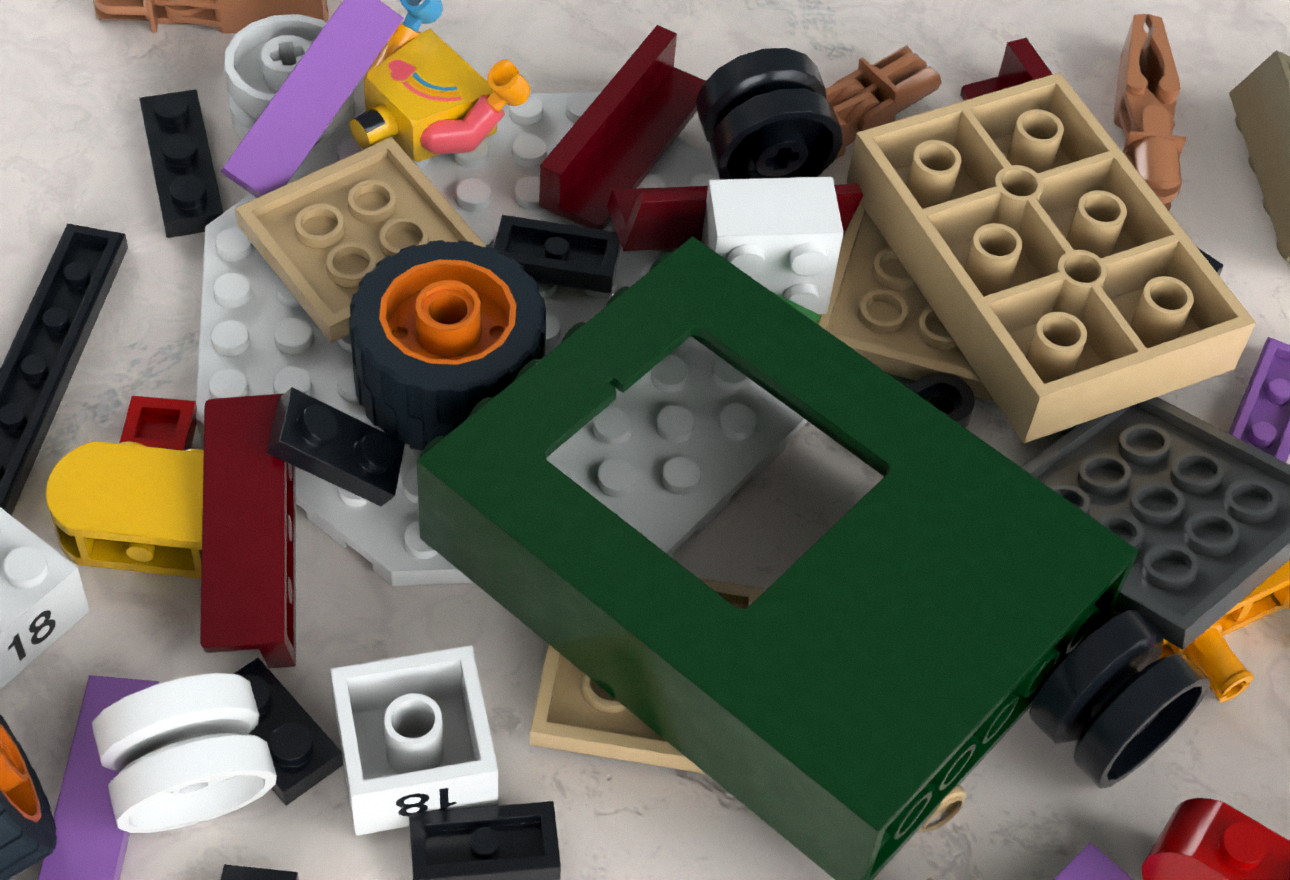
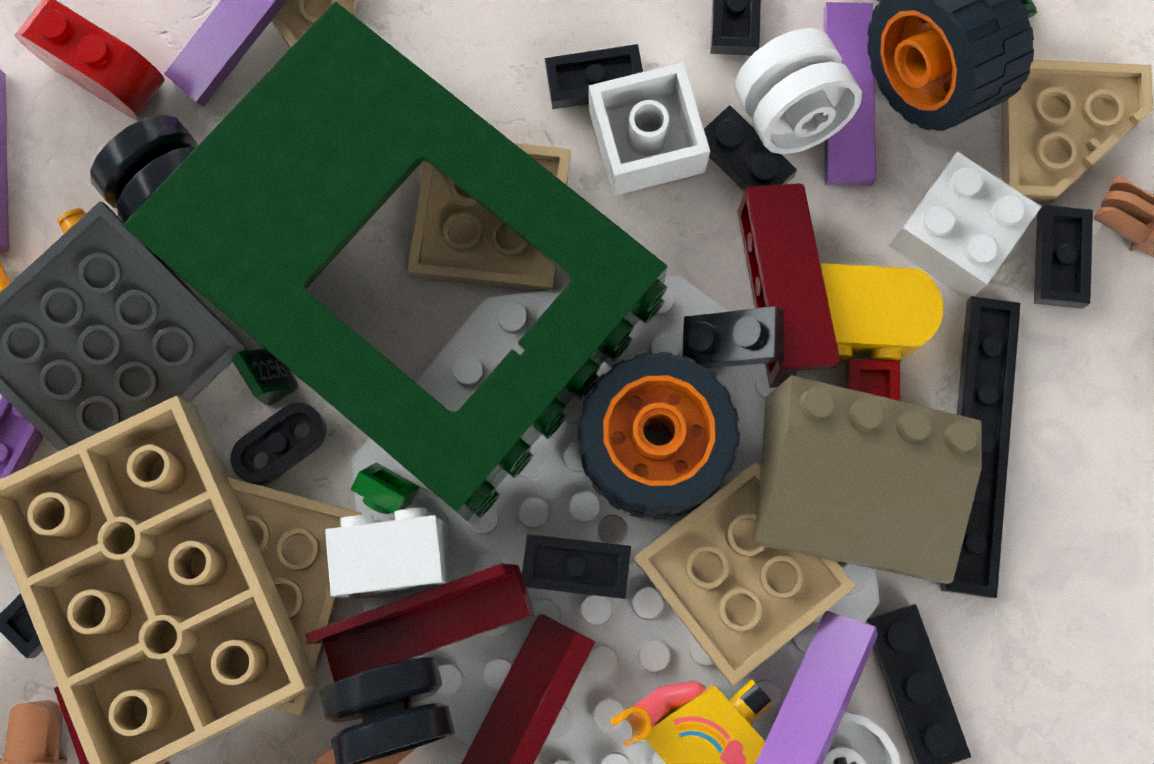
camera: 175 degrees left, 25 degrees up
(196, 309) = (866, 479): none -> dark tan slope

